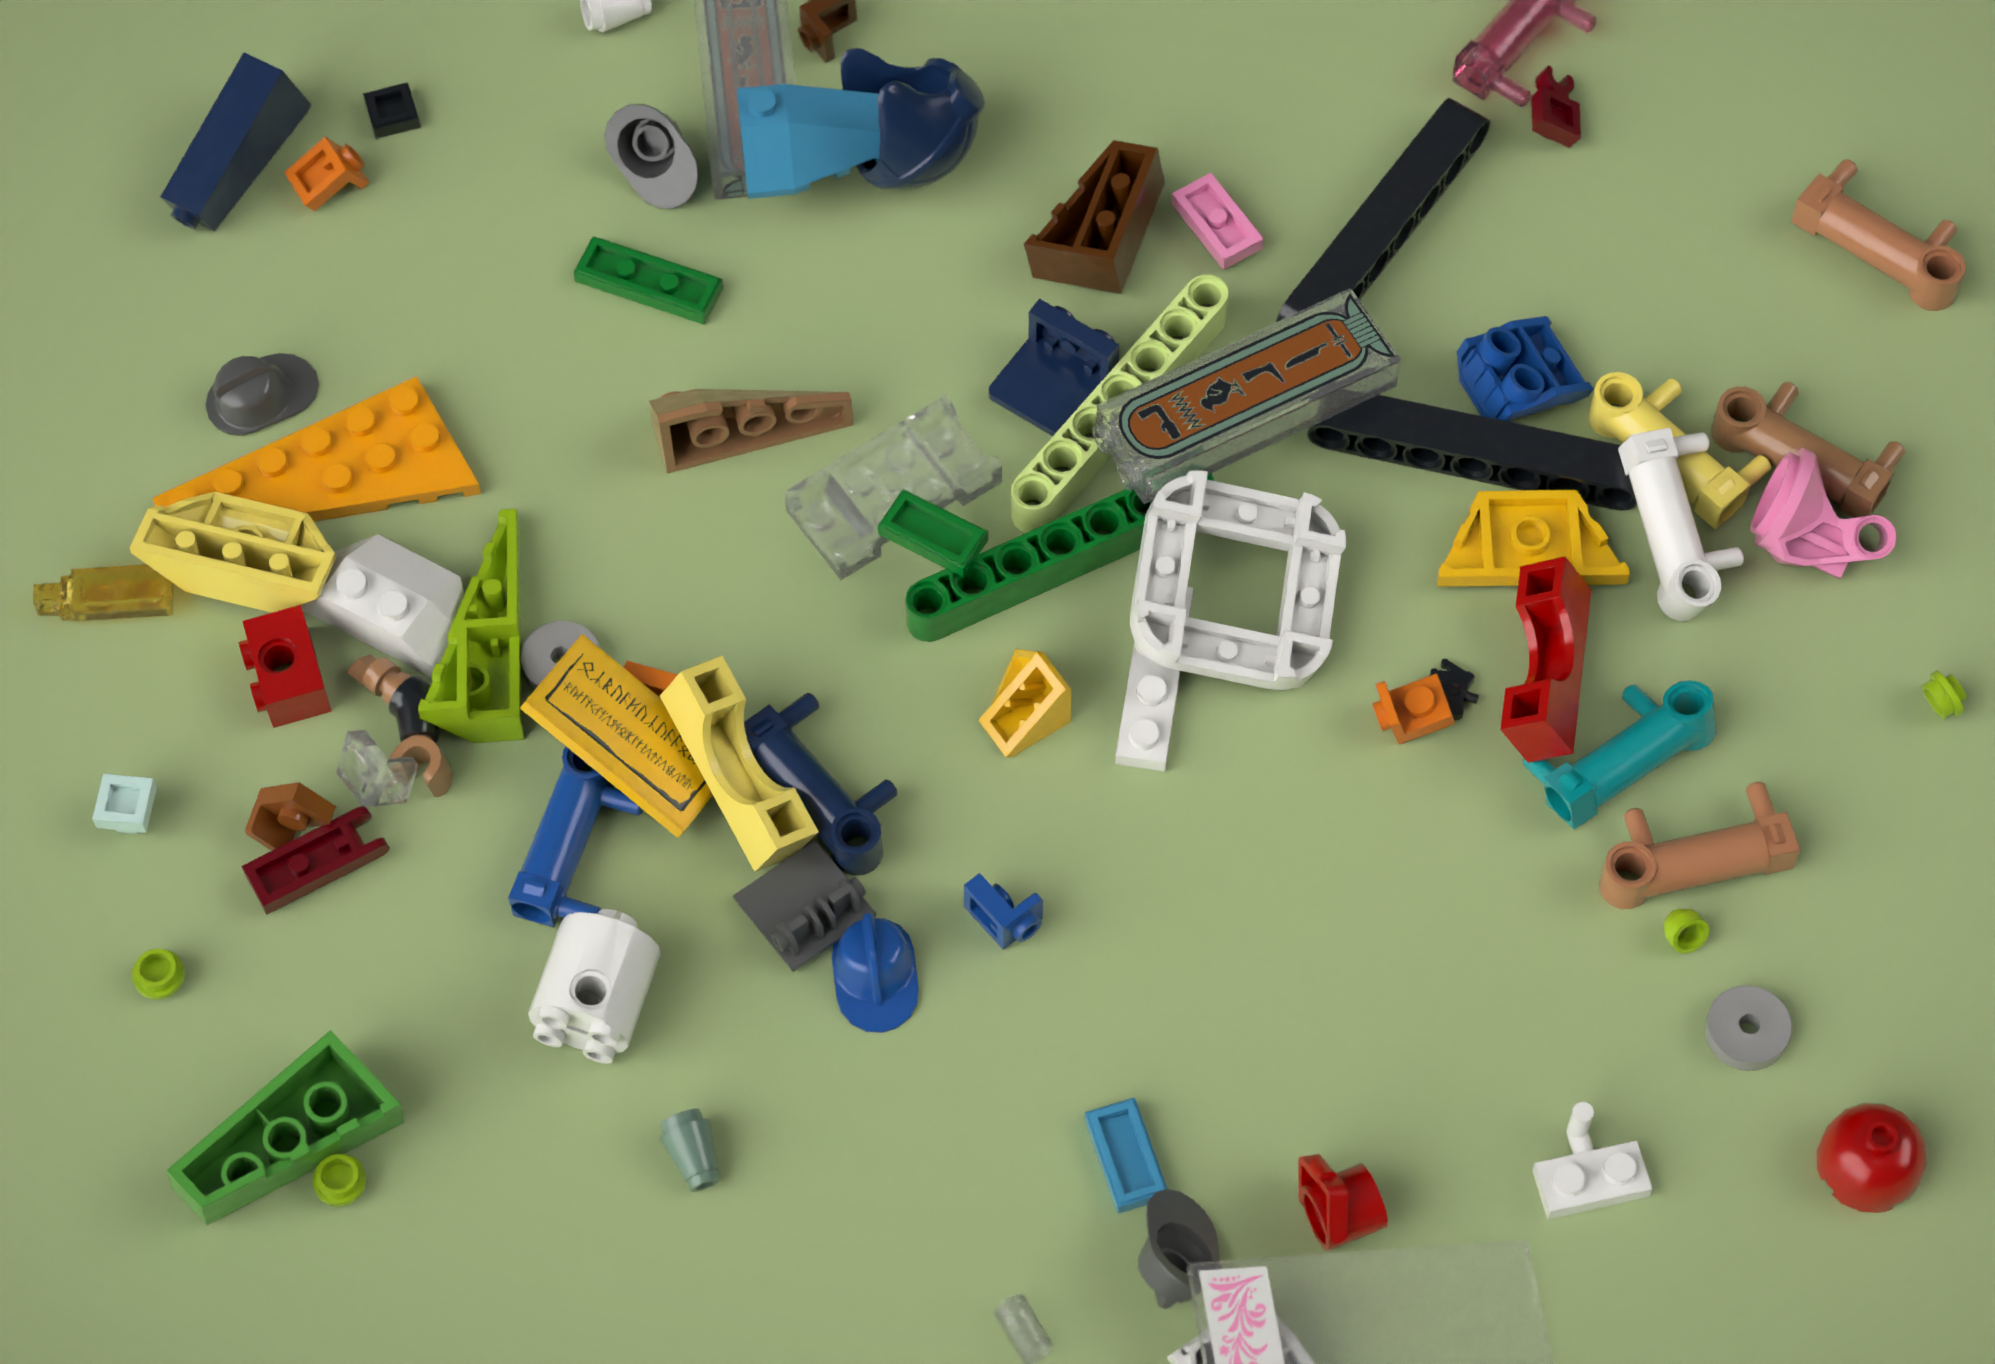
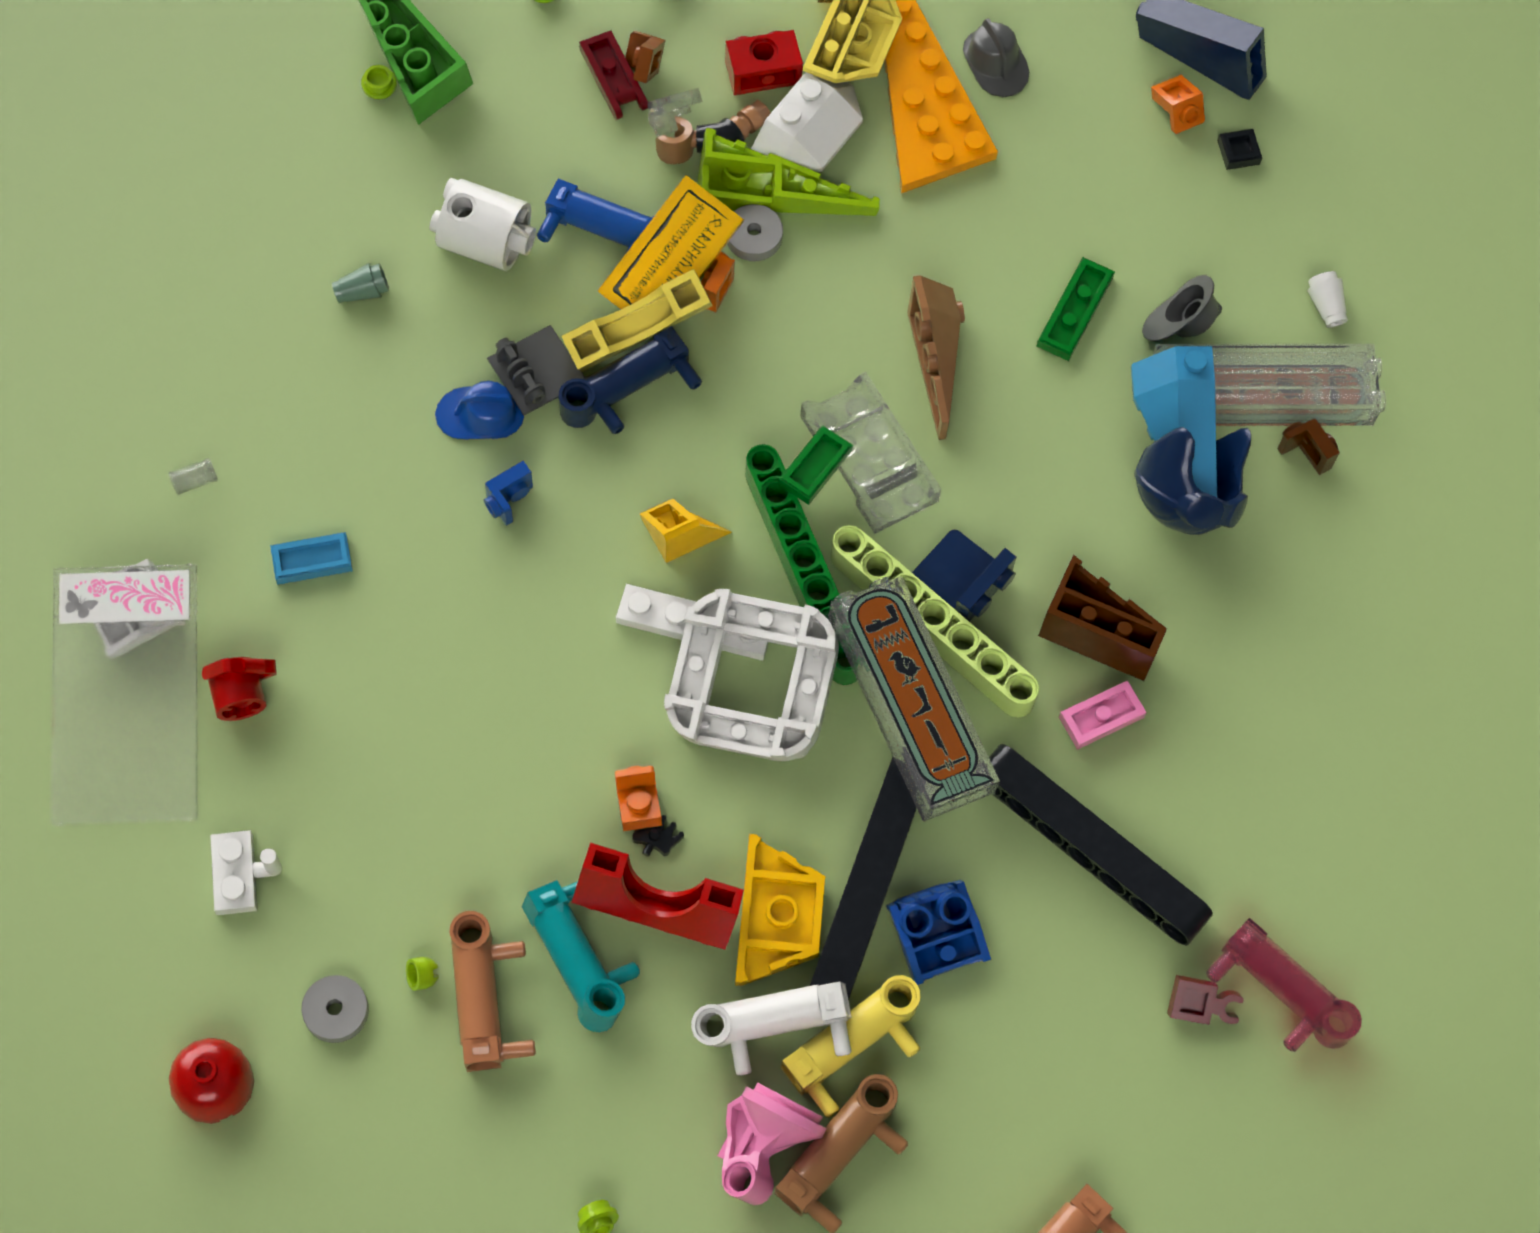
camera: 90 degrees right, 5 degrees up
(1176, 1236) = (230, 576): dark grey piece -> none

